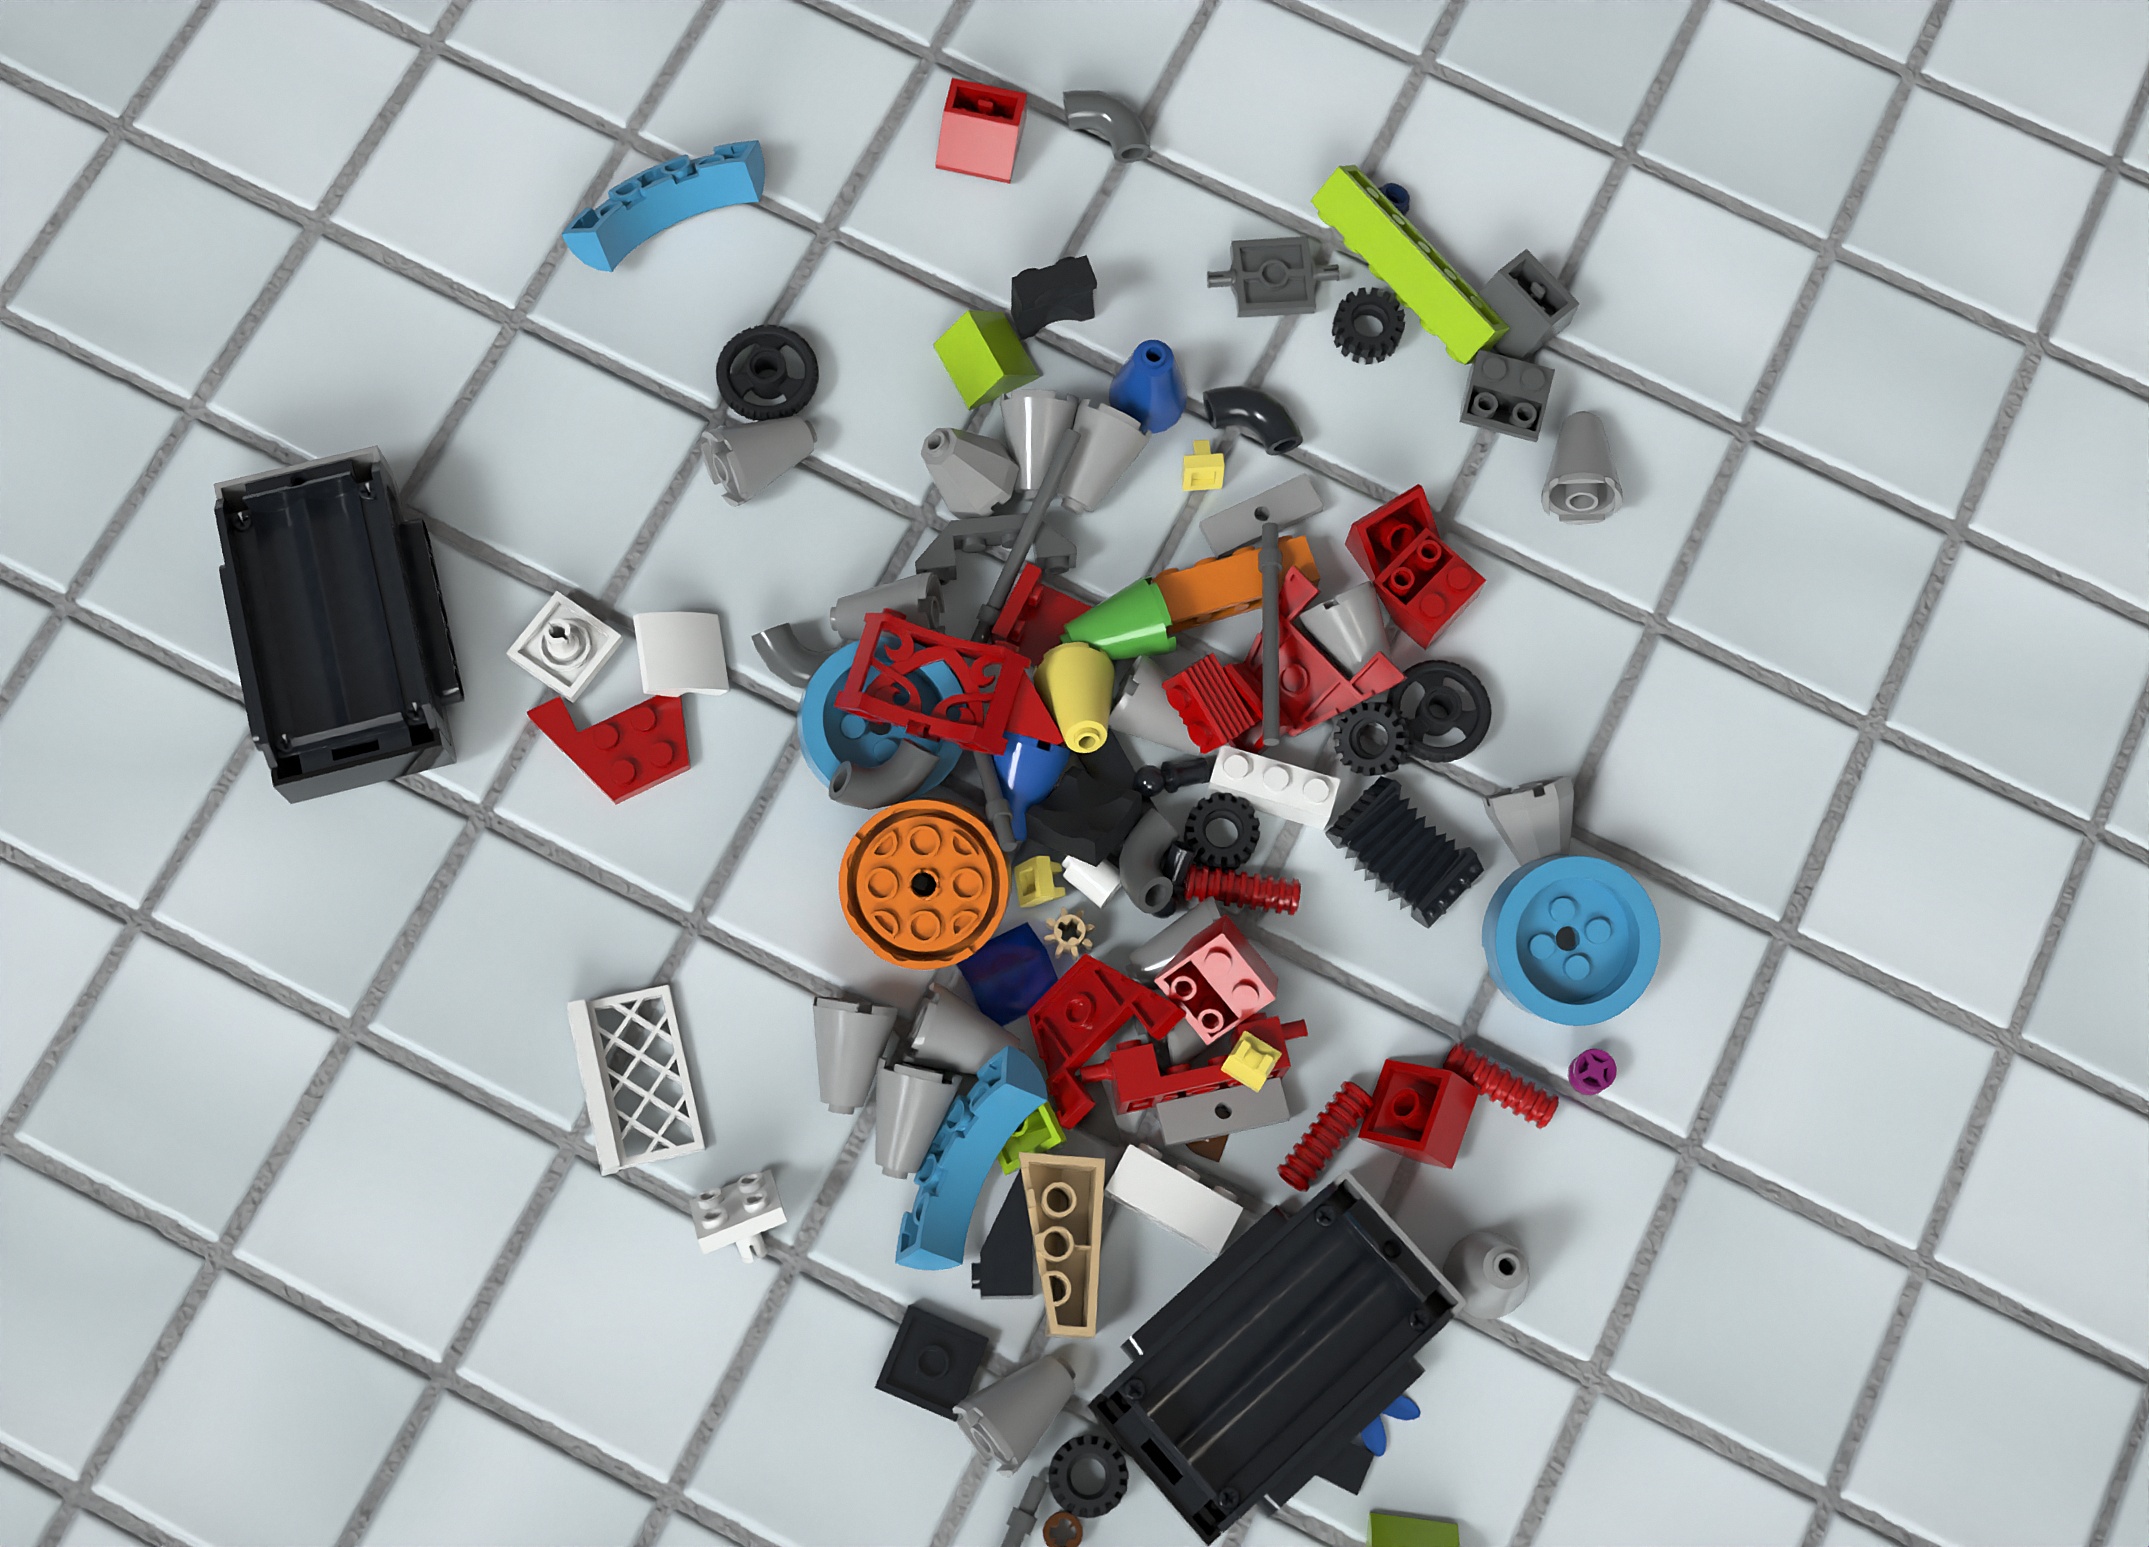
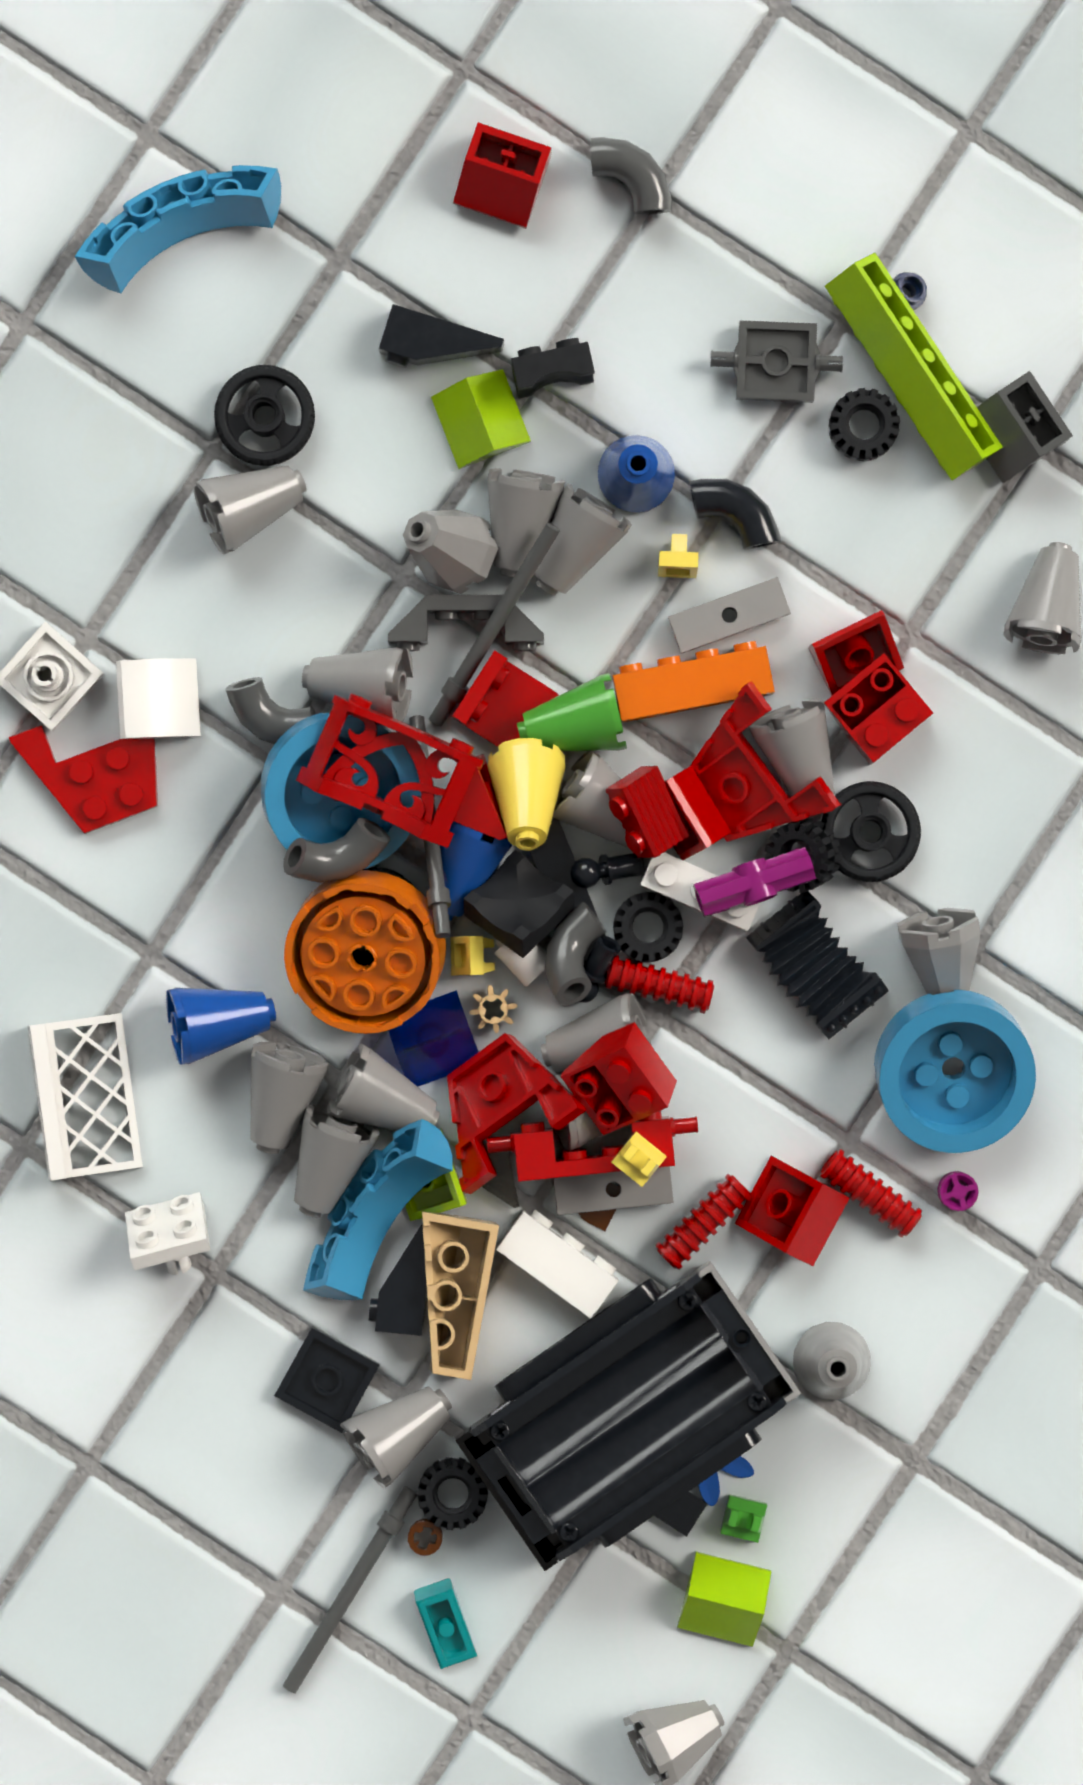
camera: 10 degrees right, 15 degrees up
(769, 976) = (215, 1019): none -> blue cone
(927, 287) = (427, 339): none -> black slope
(1270, 564) = (727, 675): dark grey bar -> none
(1331, 760) = (754, 882): none -> magenta piece
(1417, 1466) = (743, 1518): none -> bright green tile
(1506, 395) = (985, 522): dark grey slope -> none

